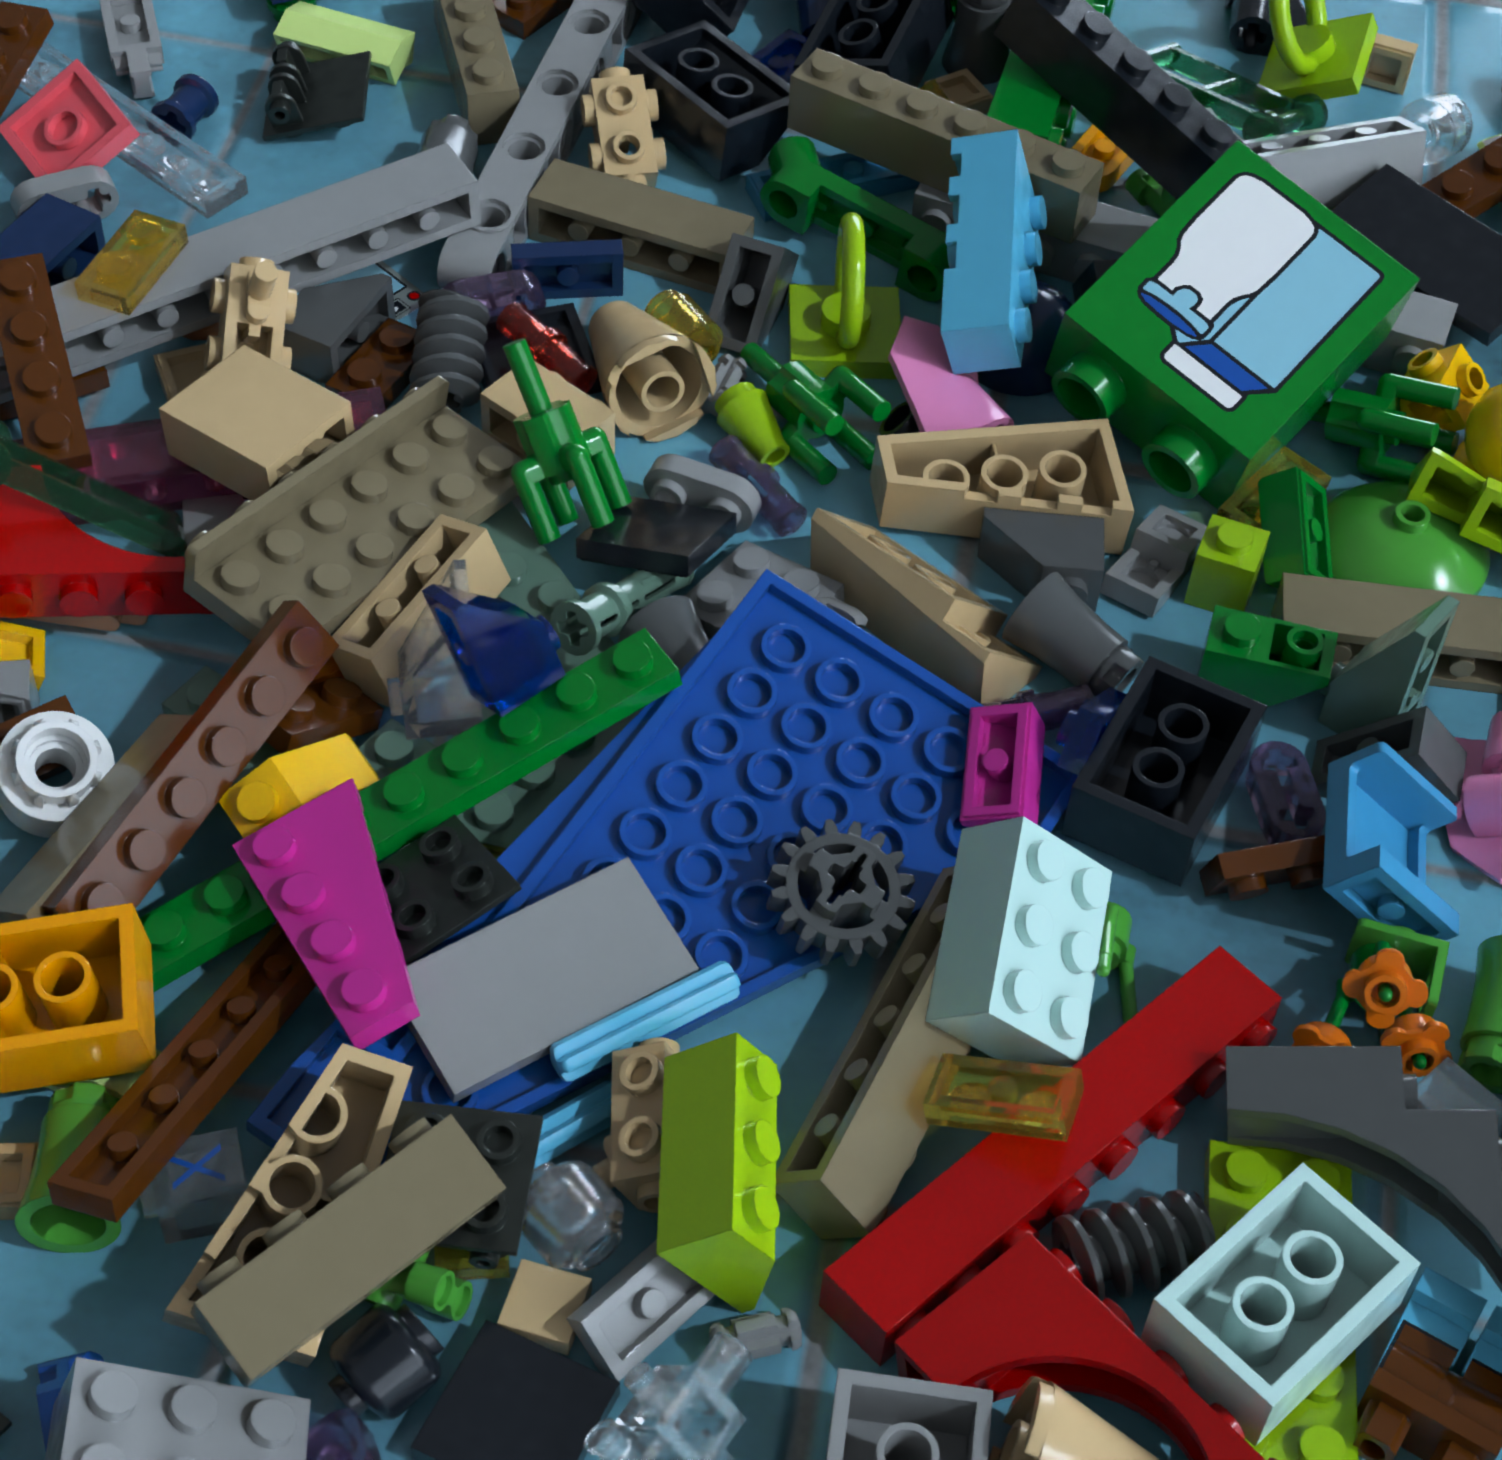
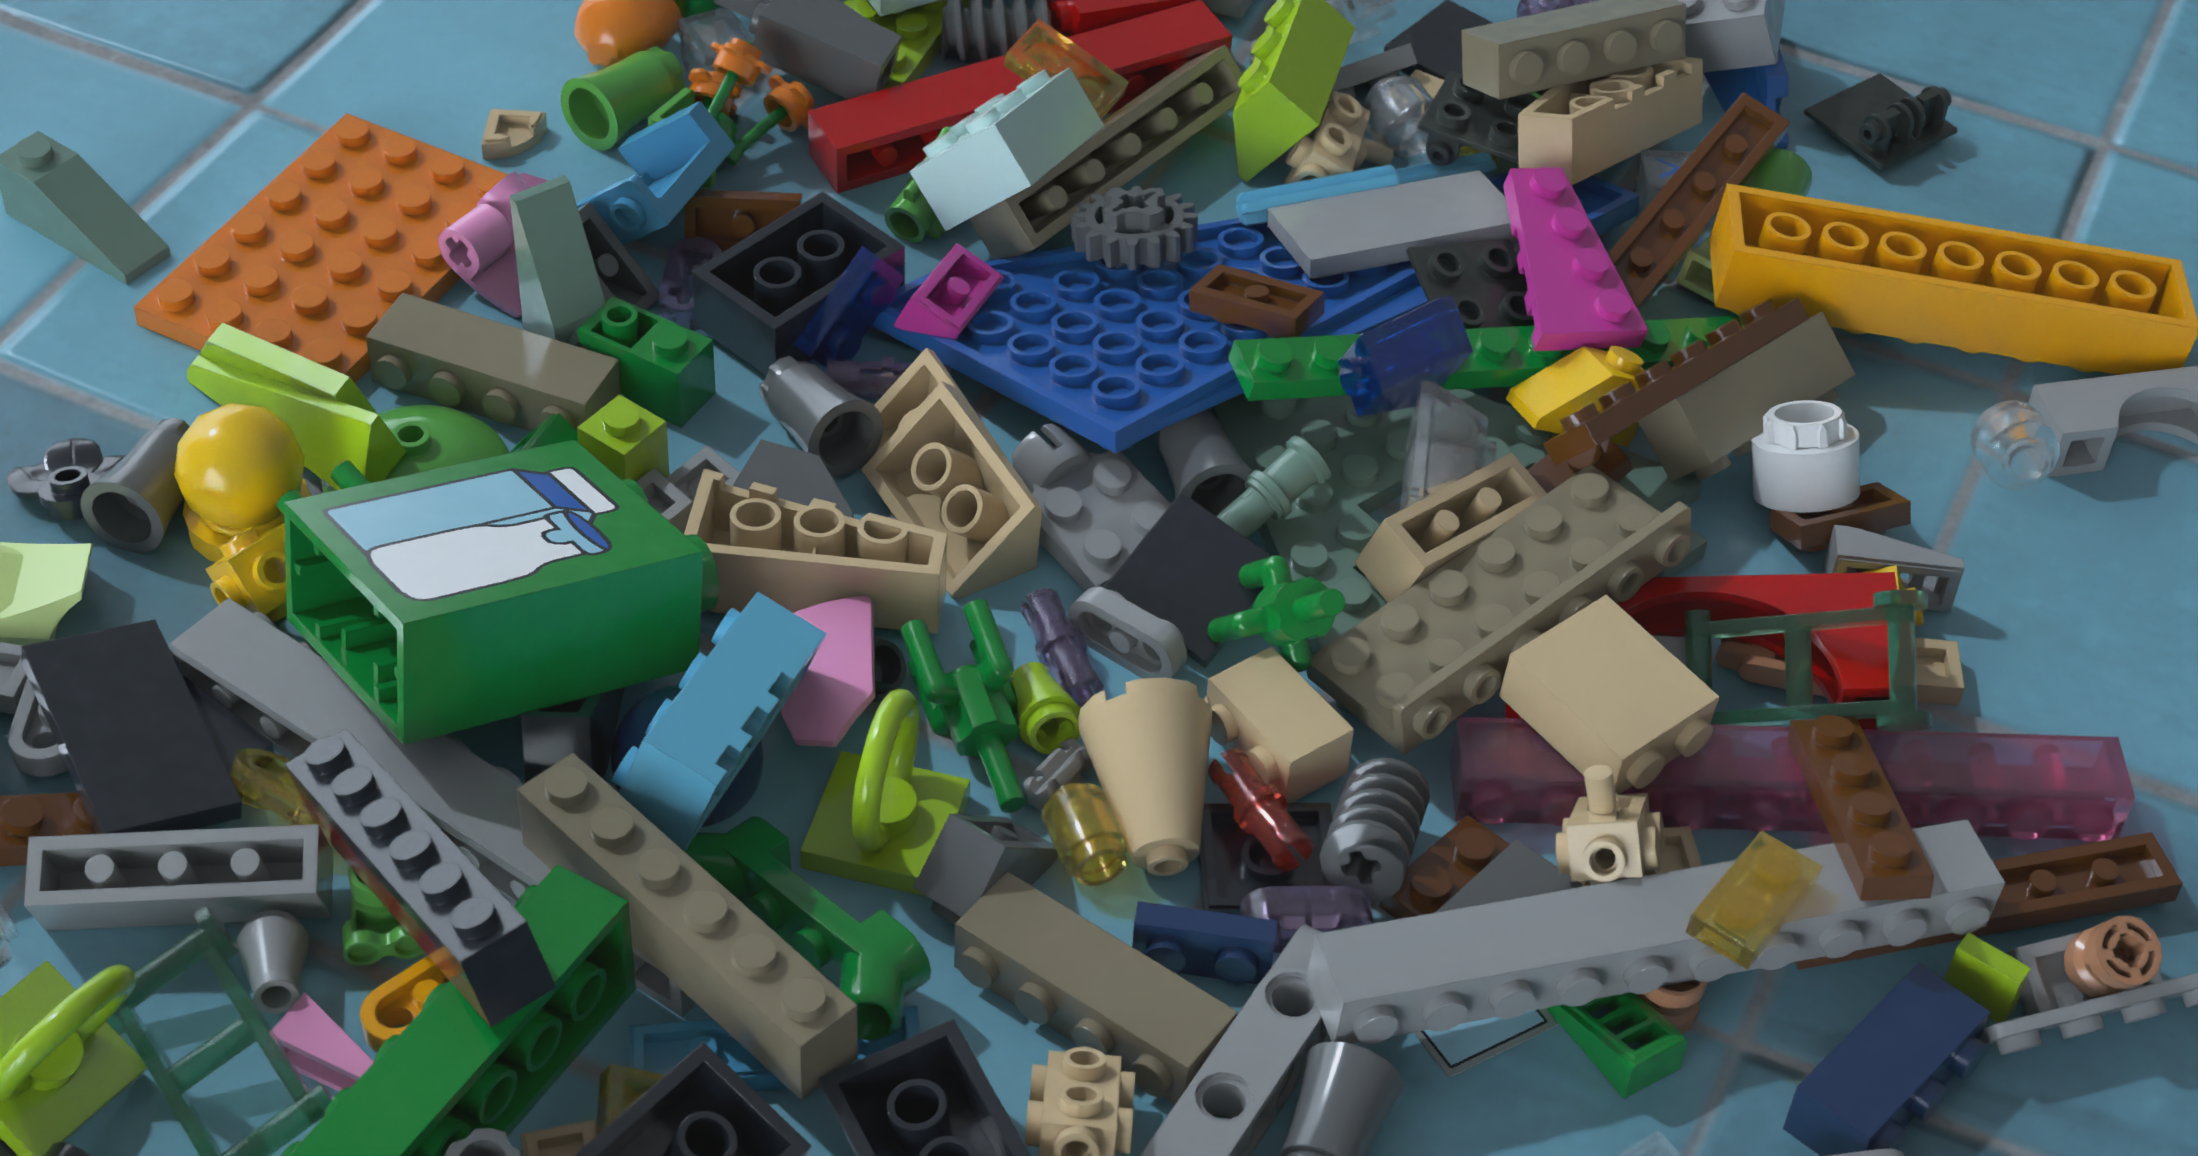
camera: 165 degrees left, 5 degrees down
(671, 766) = (1256, 301): none -> reddish brown plate

